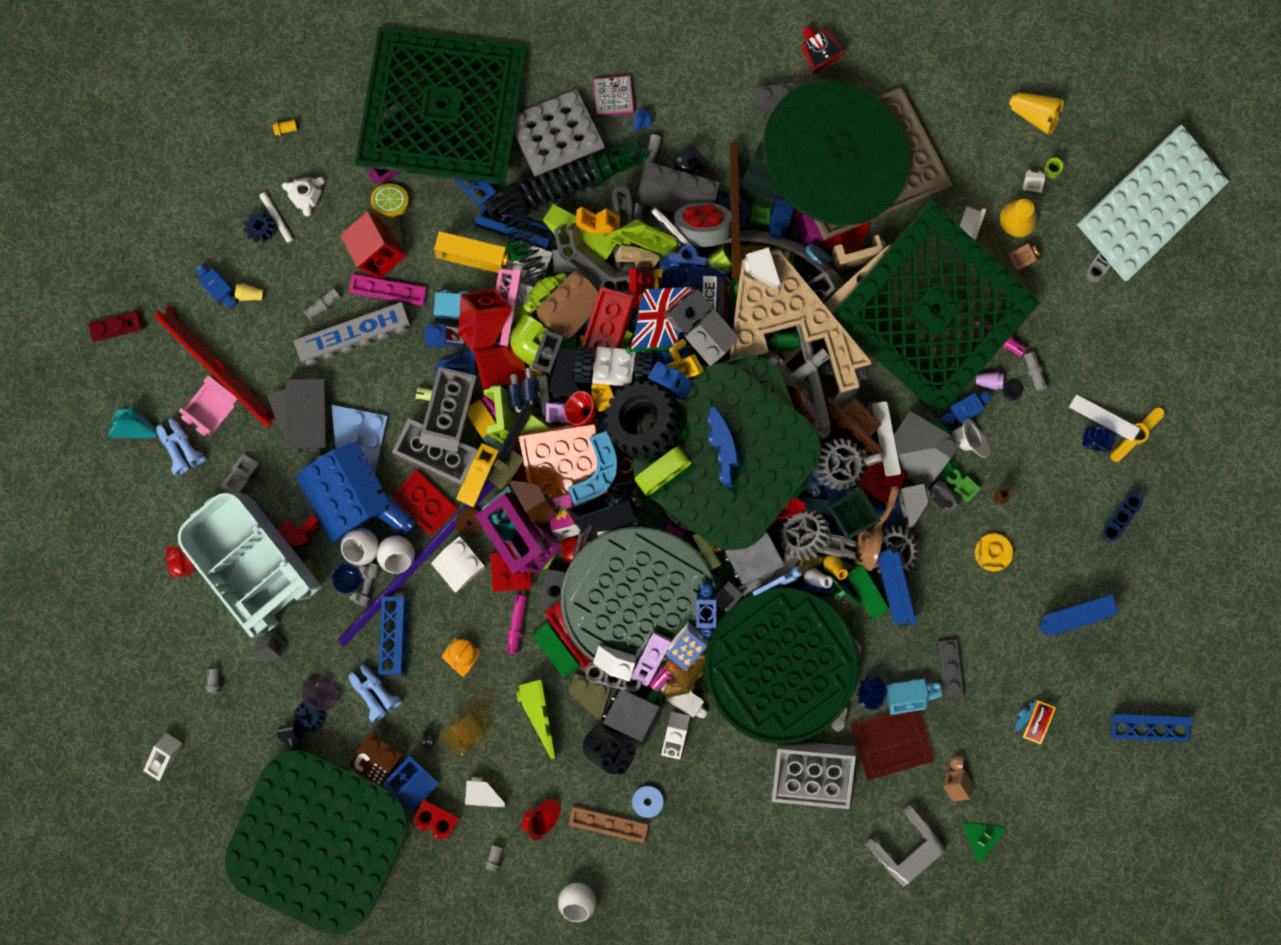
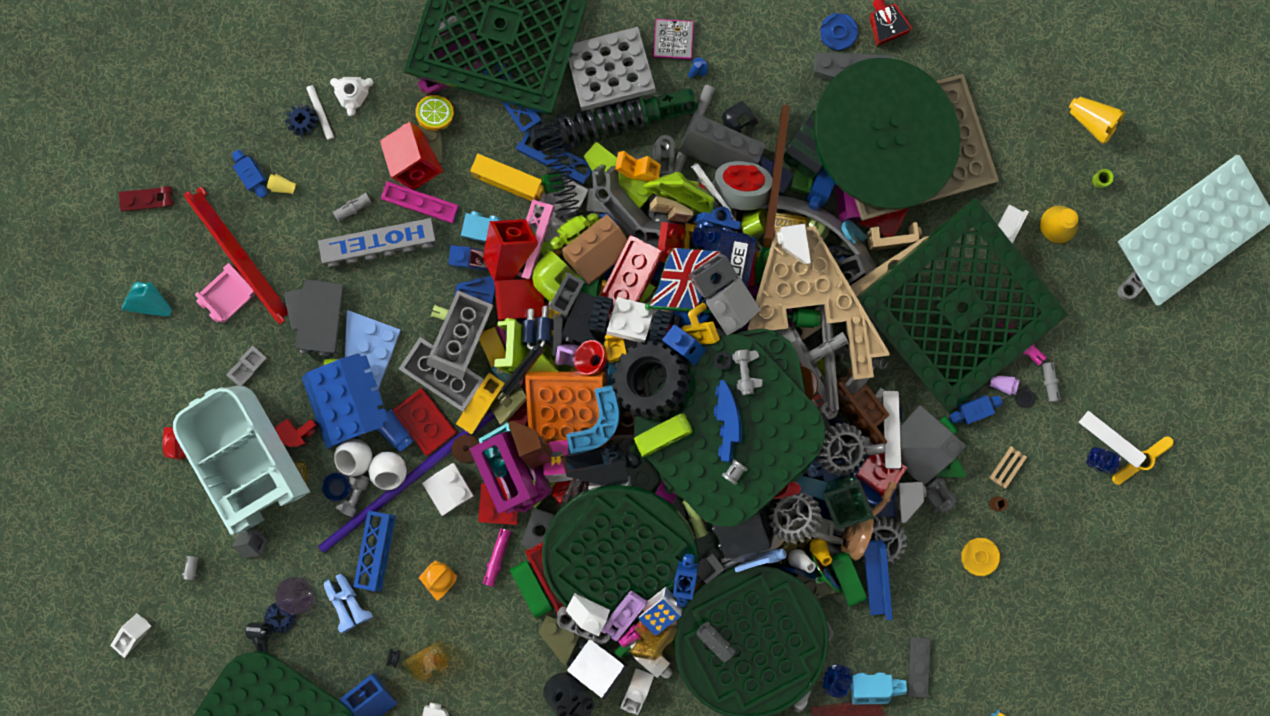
camera: 10 degrees right, 5 degrees up
(180, 438) = (192, 319): light blue piece -> none
(284, 127) = (341, 22): yellow pin -> none
(375, 759) = (339, 670): reddish brown slope -> none
(534, 703) = (503, 643): lime wedge -> none
(713, 384) = (719, 365): none -> black bush
(736, 407) = (746, 384): none -> light grey piece
(738, 493) = (734, 472): none -> light grey bush
(745, 667) = (715, 641): none -> dark grey axle
(773, 65) = (836, 38): none -> blue tile
(965, 487) = (962, 488): bright green plate -> none
(972, 439) = (977, 441): white piece -> none
(1013, 446) = (1016, 454): none -> tan tile
(1025, 256) = (1060, 264): medium nougat bracket -> none
(1034, 181) = (1081, 189): white tile -> none
(1078, 616) = (1054, 636): blue piece -> none
(1128, 510) = (1122, 538): dark blue beam -> none

